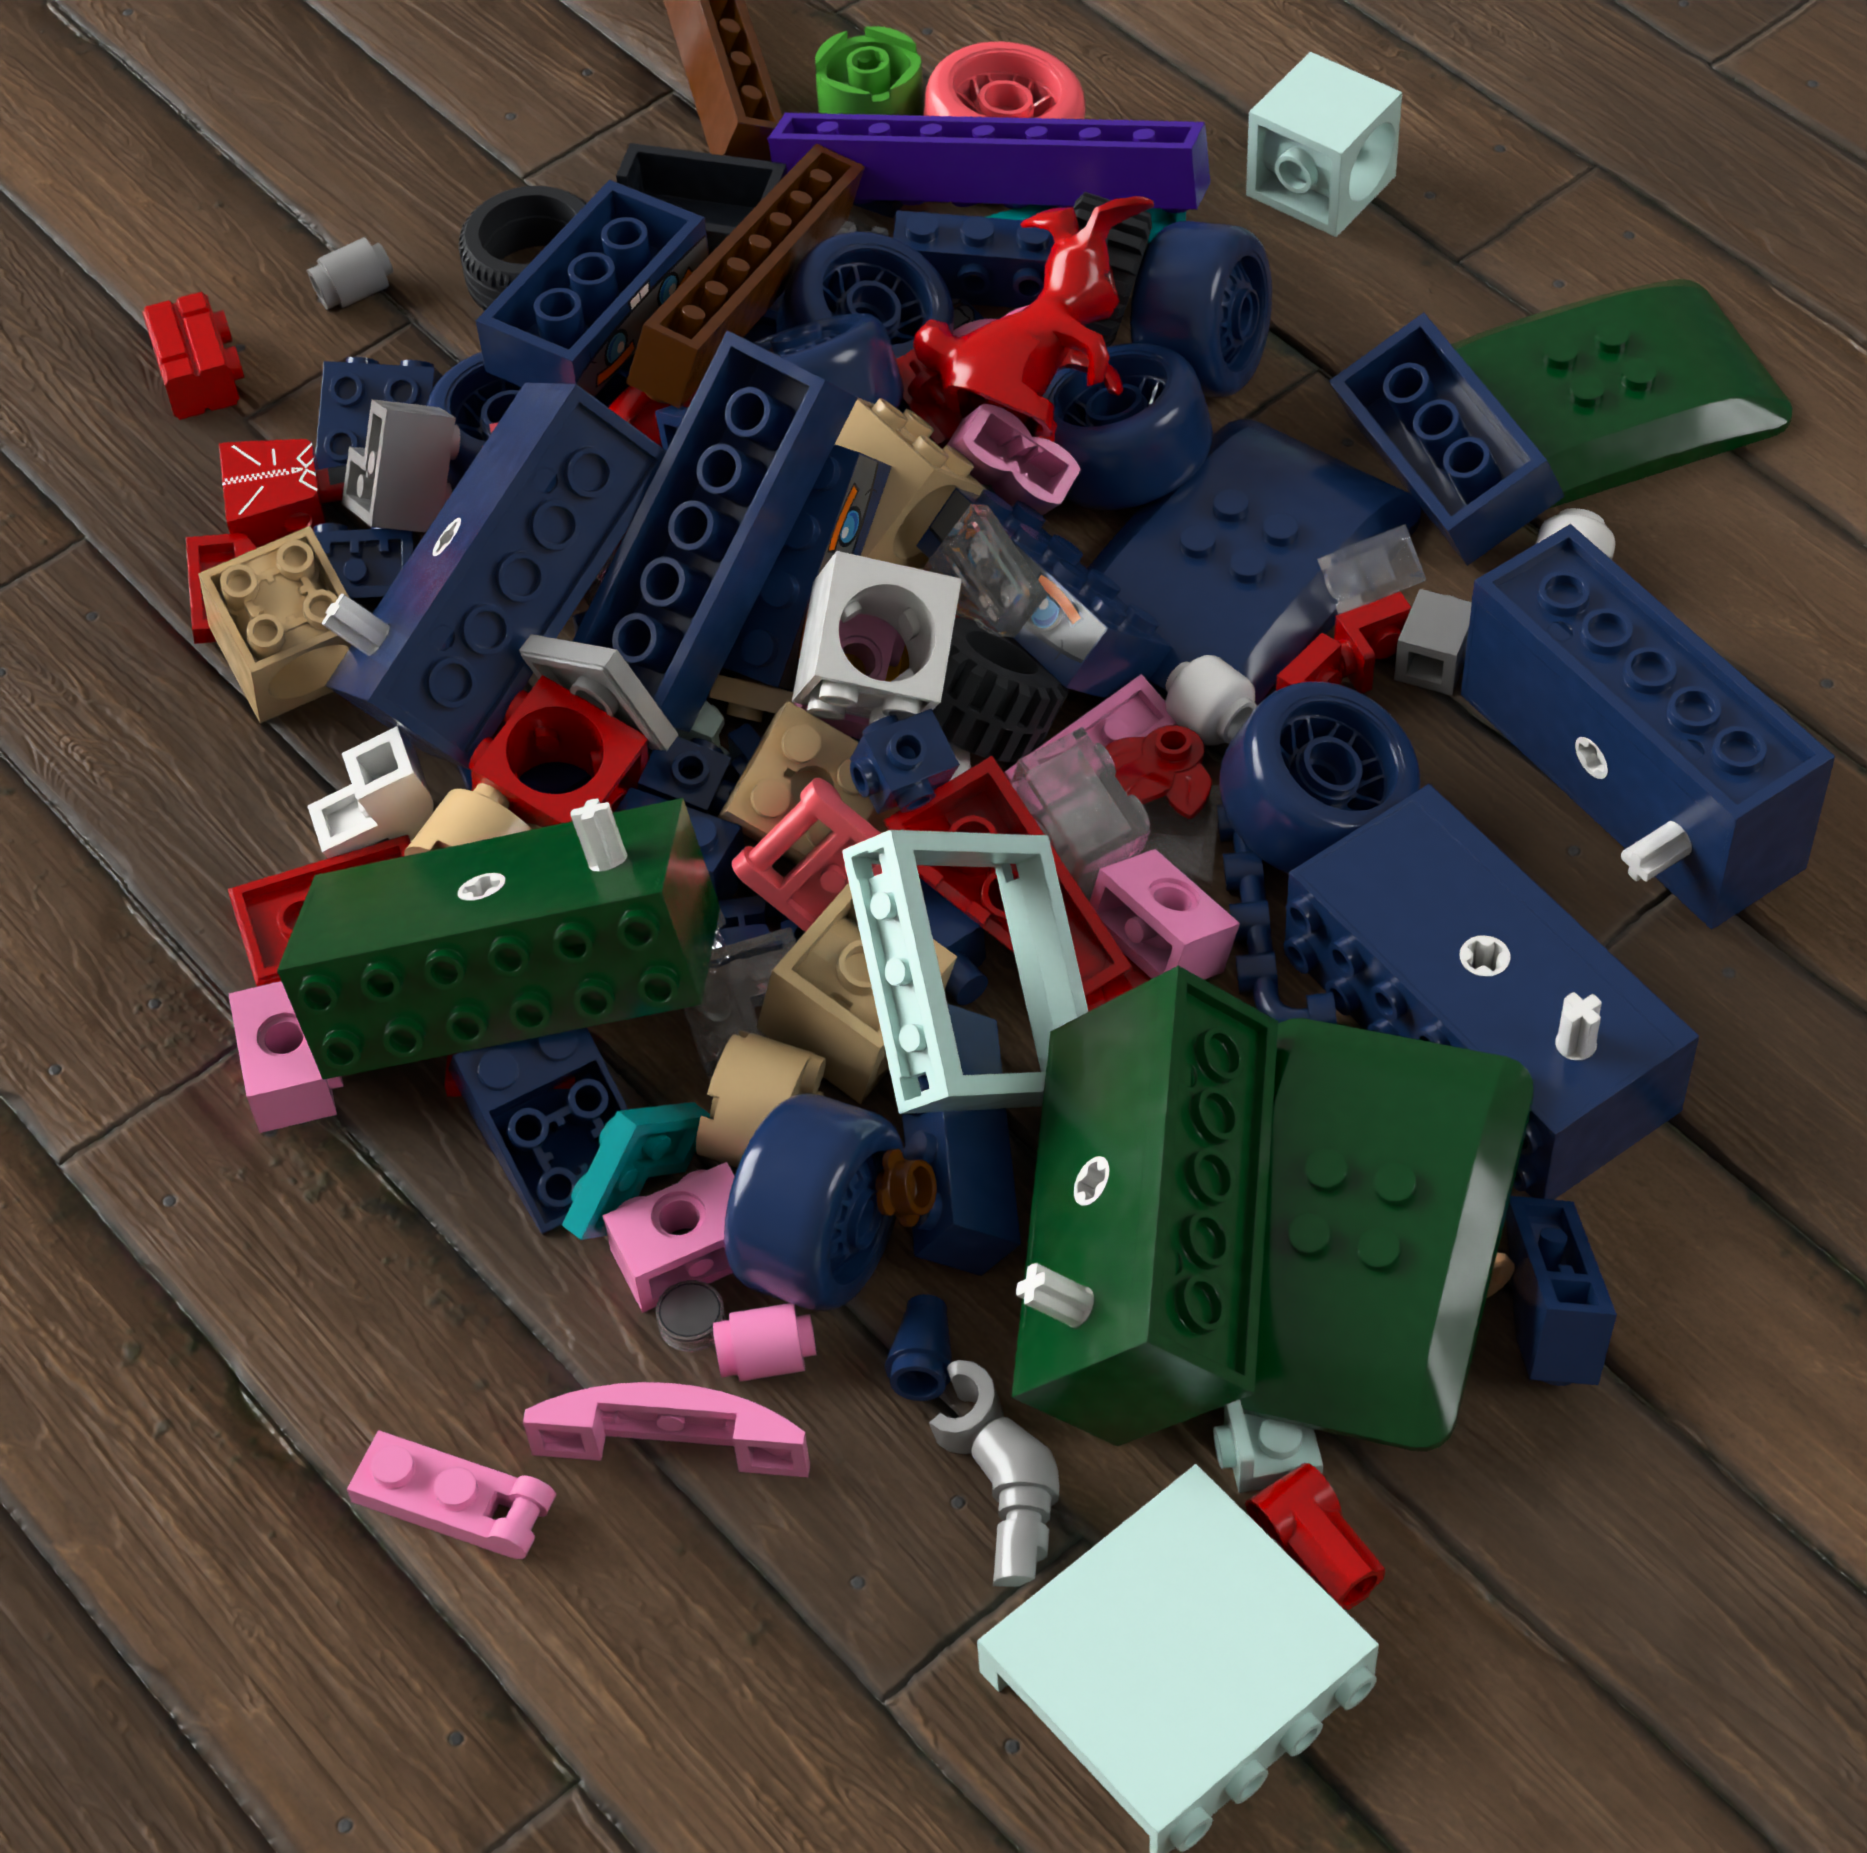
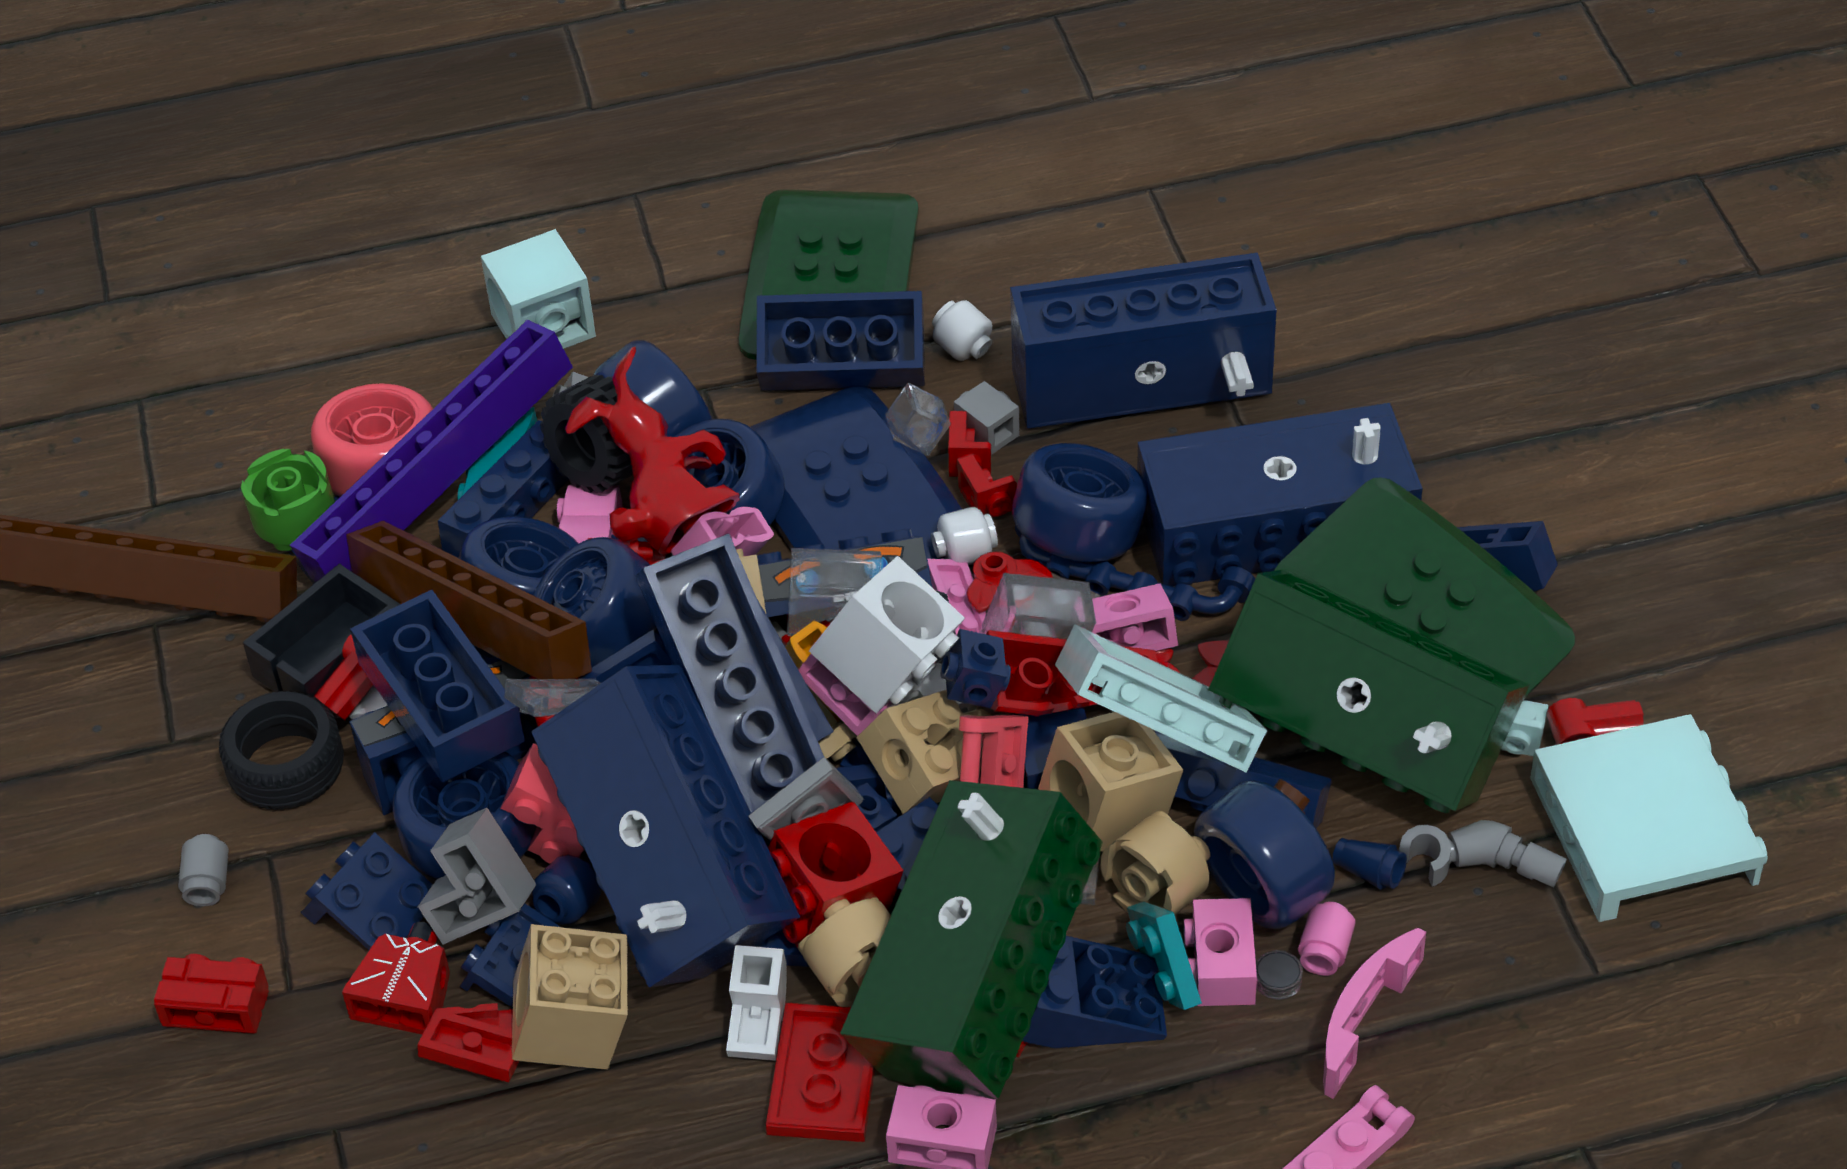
camera: 65 degrees left, 5 degrees down
(585, 361) = (546, 696): none -> clear wing

